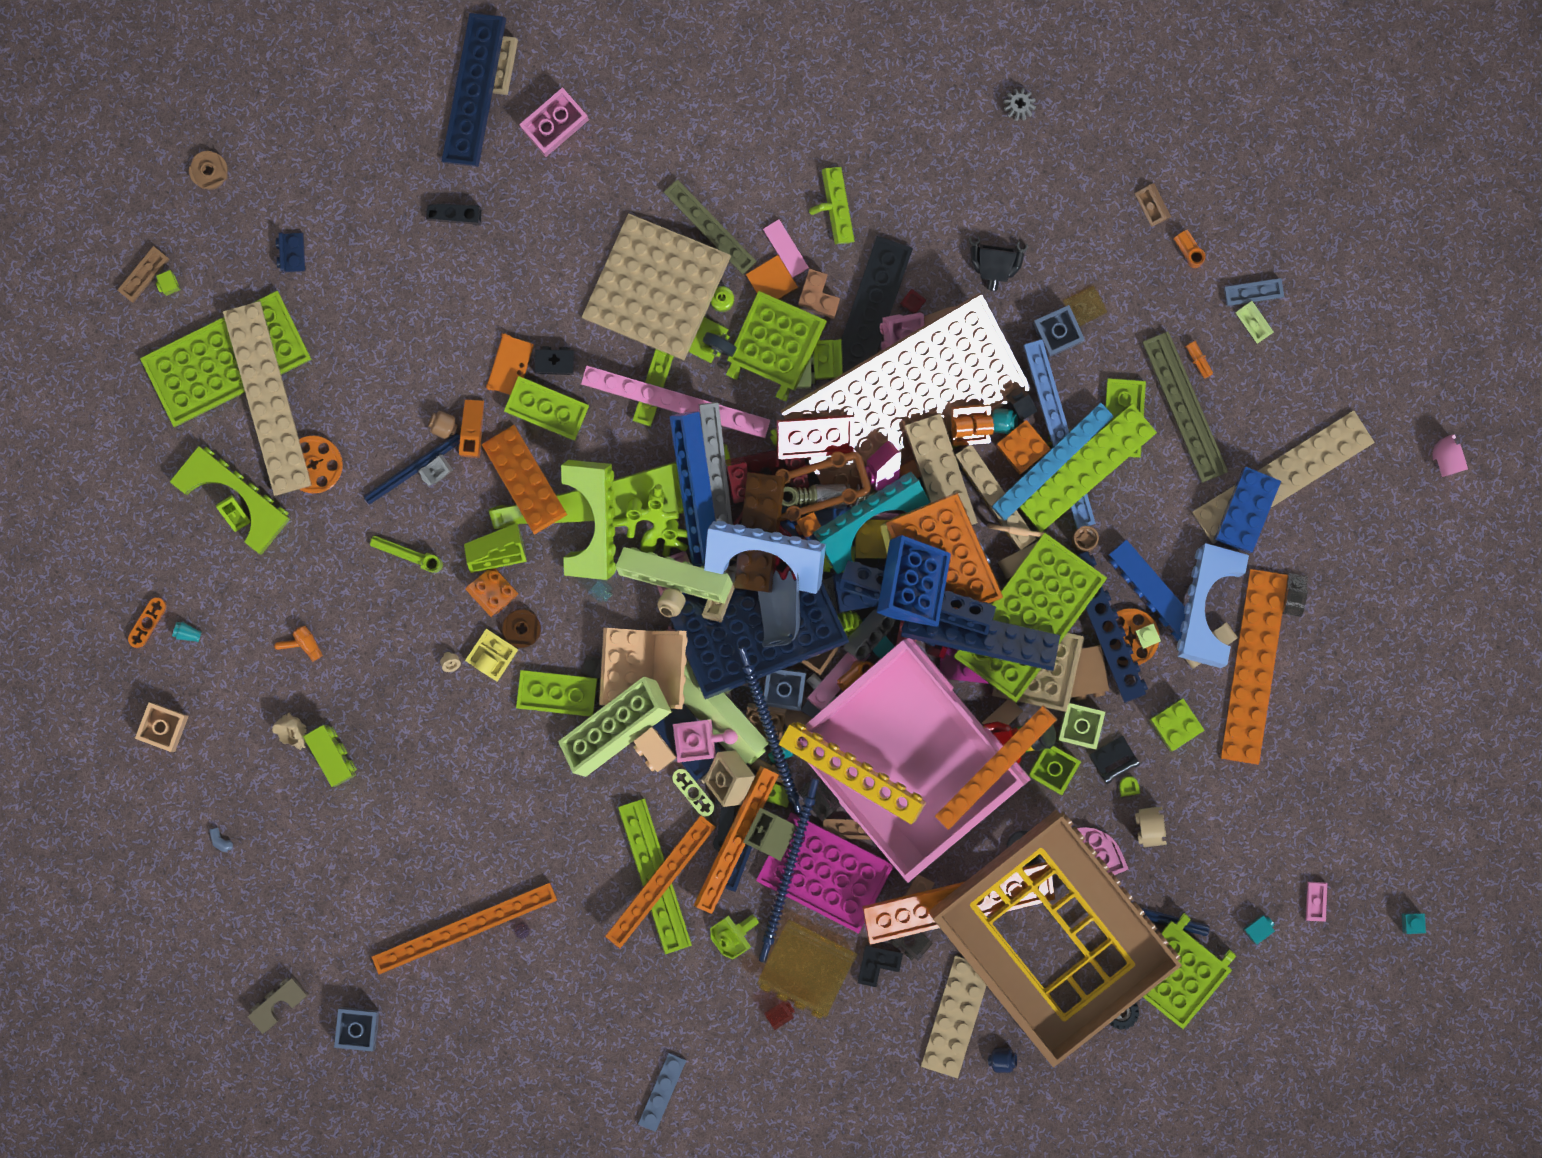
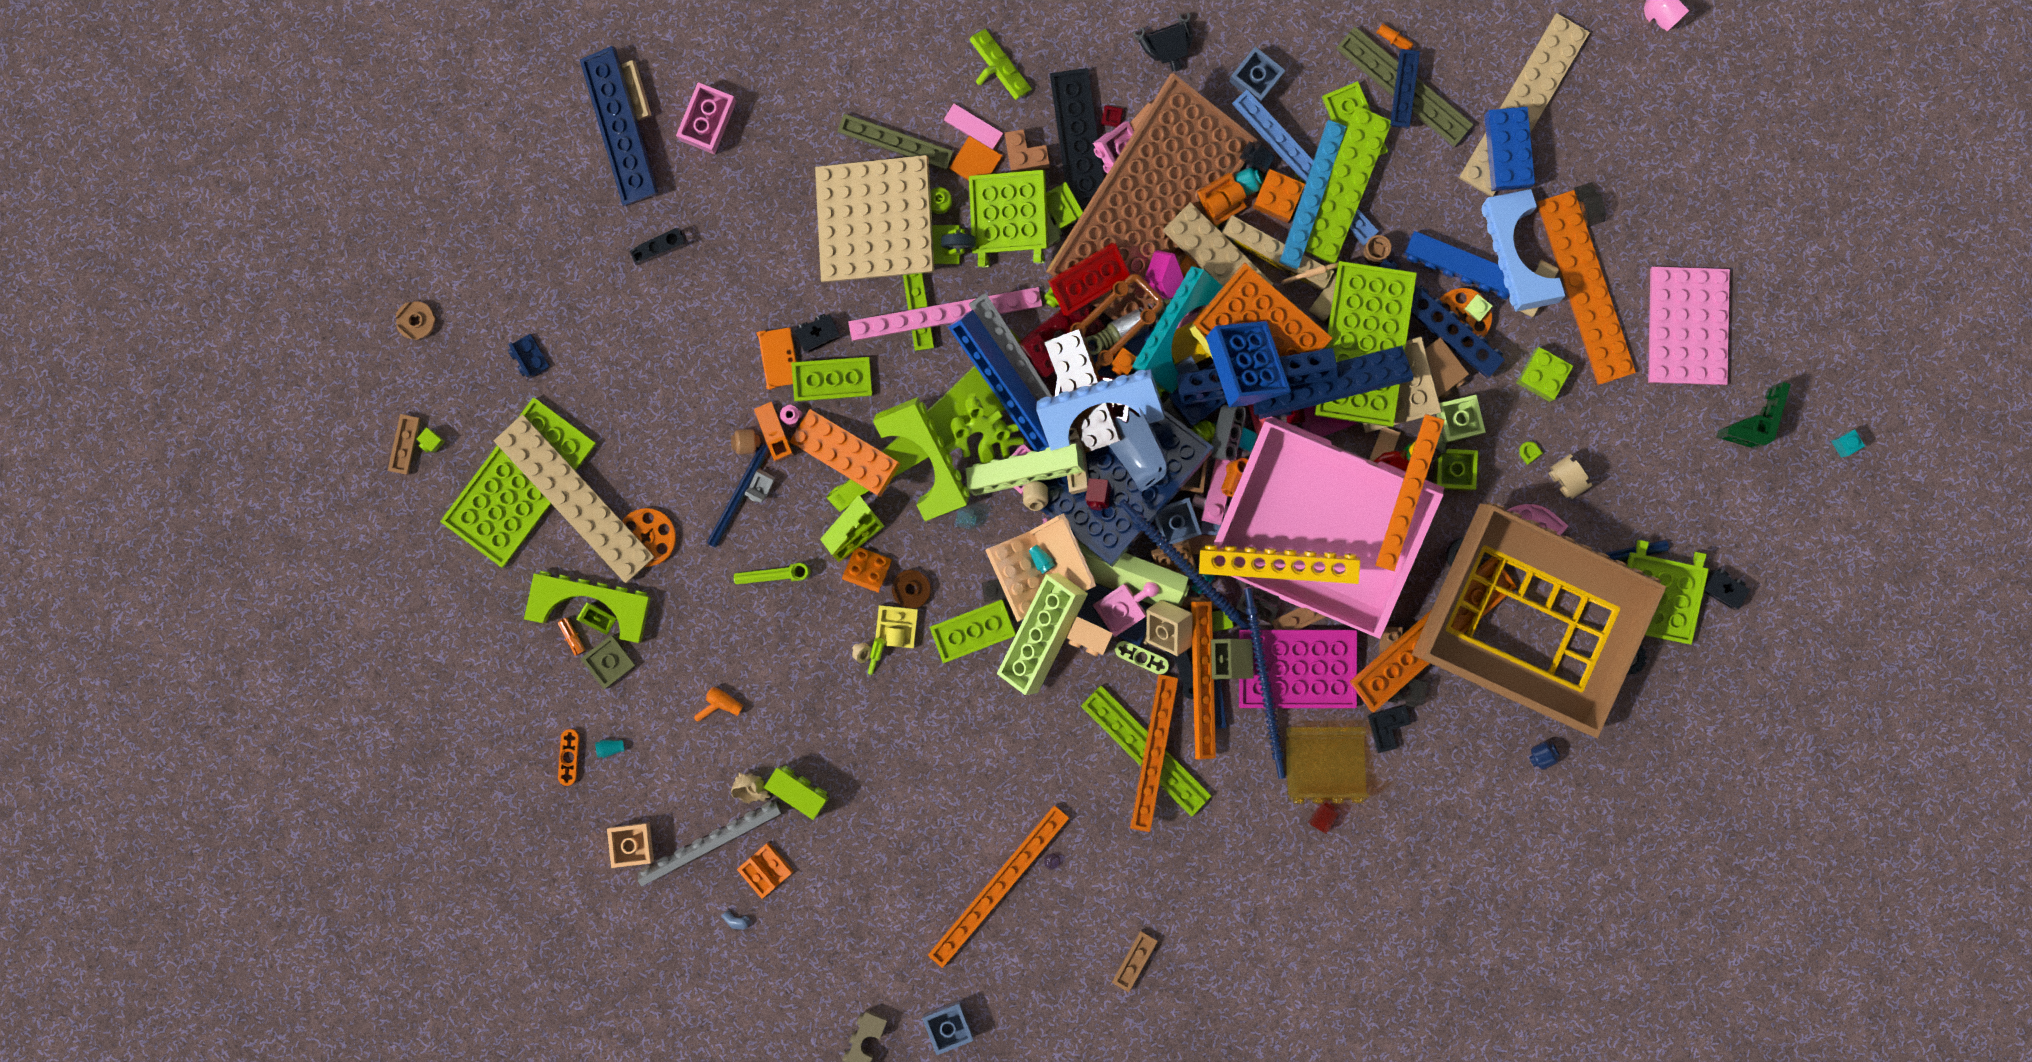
camera: 25 degrees left, 0 degrees up
(203, 518) = (571, 636): none -> orange axle
(224, 556) = (608, 662): none -> olive plate
(225, 760) = (702, 846): none -> light grey plate
(259, 811) = (759, 874): none -> orange slope
(461, 670) = (876, 653): none -> lime axle
(493, 427) = (796, 415): none -> bright pink brick
(549, 1055) = (1134, 961): none -> medium nougat plate
(648, 661) = (1041, 559): none -> teal cone
(662, 1092) = (1252, 942): sand blue plate -> none
(726, 629) = (1098, 494): none -> dark red brick
(730, 937) = (1242, 770): lime piece -> none
(863, 556) = (1186, 366): none -> sand blue plate
(954, 1019) = (1481, 740): tan plate -> none
(1086, 305) = (1269, 40): clear yellow piece -> none
(1110, 754) = (1498, 431): black plate -> none
(1182, 409) = (1404, 88): none -> dark blue plate
(1240, 1007) = (1714, 588): none -> black brick
(1259, 929) = (1713, 519): teal brick -> none
(1316, 901) = (1750, 468): bright pink plate -> none
(1327, 747) = (1688, 326): none -> bright pink plate
(1327, 865) = (1761, 428): none -> dark green bracket

